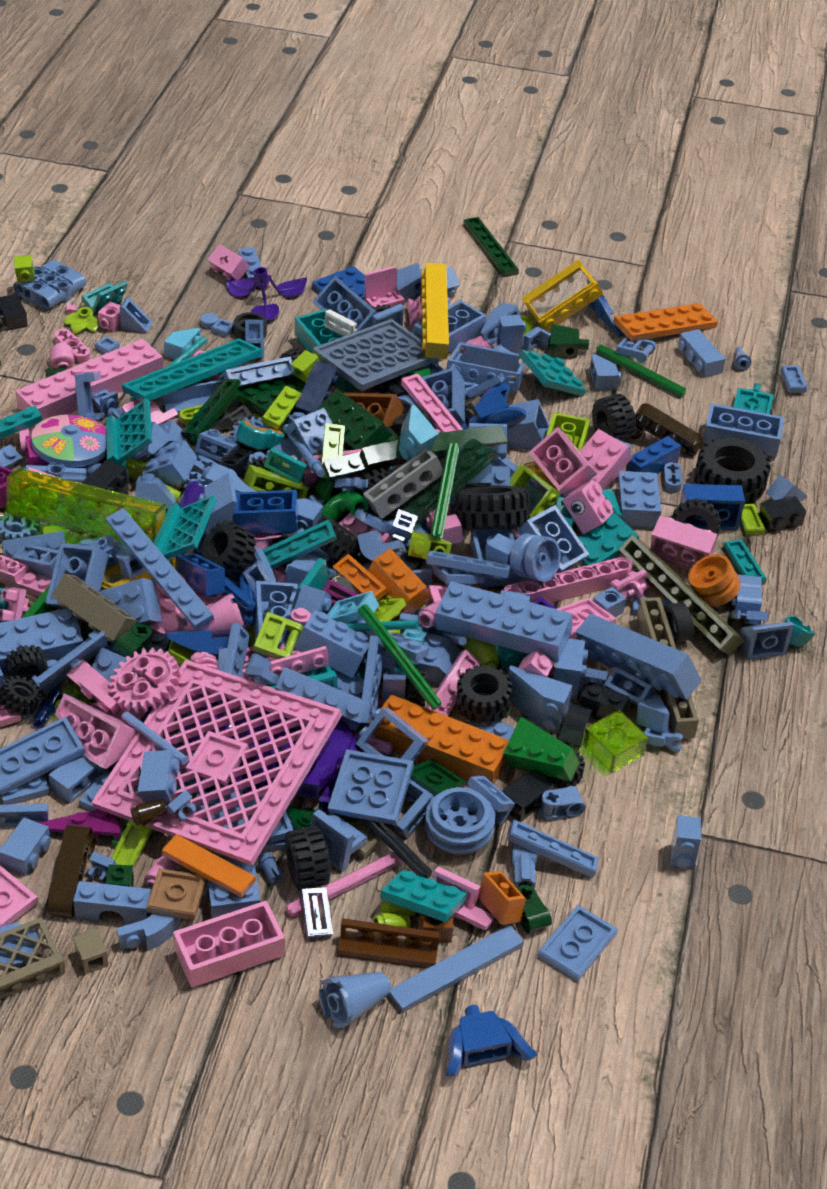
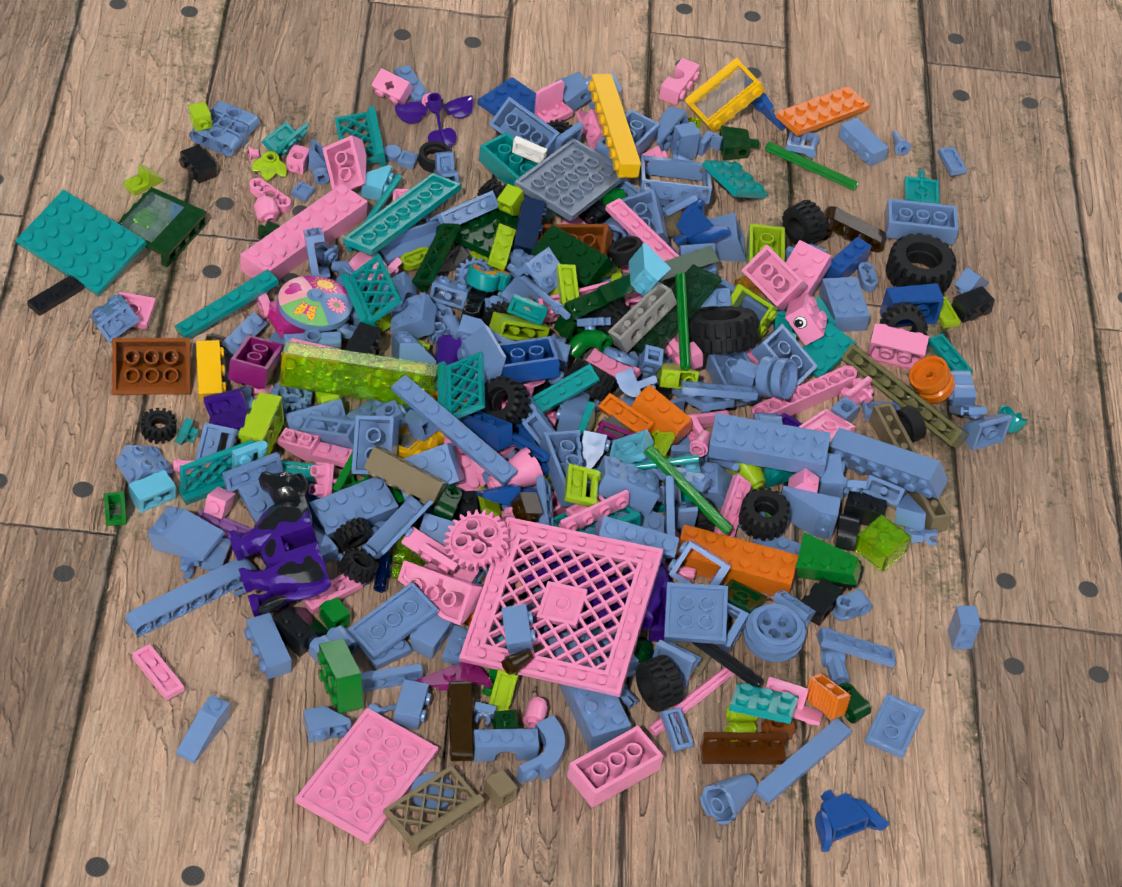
camera: 15 degrees left, 5 degrees up
(129, 328) = (319, 172): none -> medium blue bush
(154, 737) = (499, 591): medium blue bar -> none
(155, 320) = (346, 162): none -> bright pink slope
(176, 894) = (559, 729): medium nougat tile -> none
(179, 804) = (544, 651): medium blue tile -> none
(195, 305) = (373, 133): none -> teal fence
(208, 865) = (581, 701): orange tile -> none
(210, 652) = (526, 506): none -> dark brown brick
(259, 670) = (578, 521): medium blue bracket -> none
(300, 616) = (590, 461): bright pink plate -> none
(491, 247) = (636, 40): dark green tile -> none
(530, 278) = (675, 88): none -> bright pink arch
(604, 373) = (780, 173): medium blue slope -> none

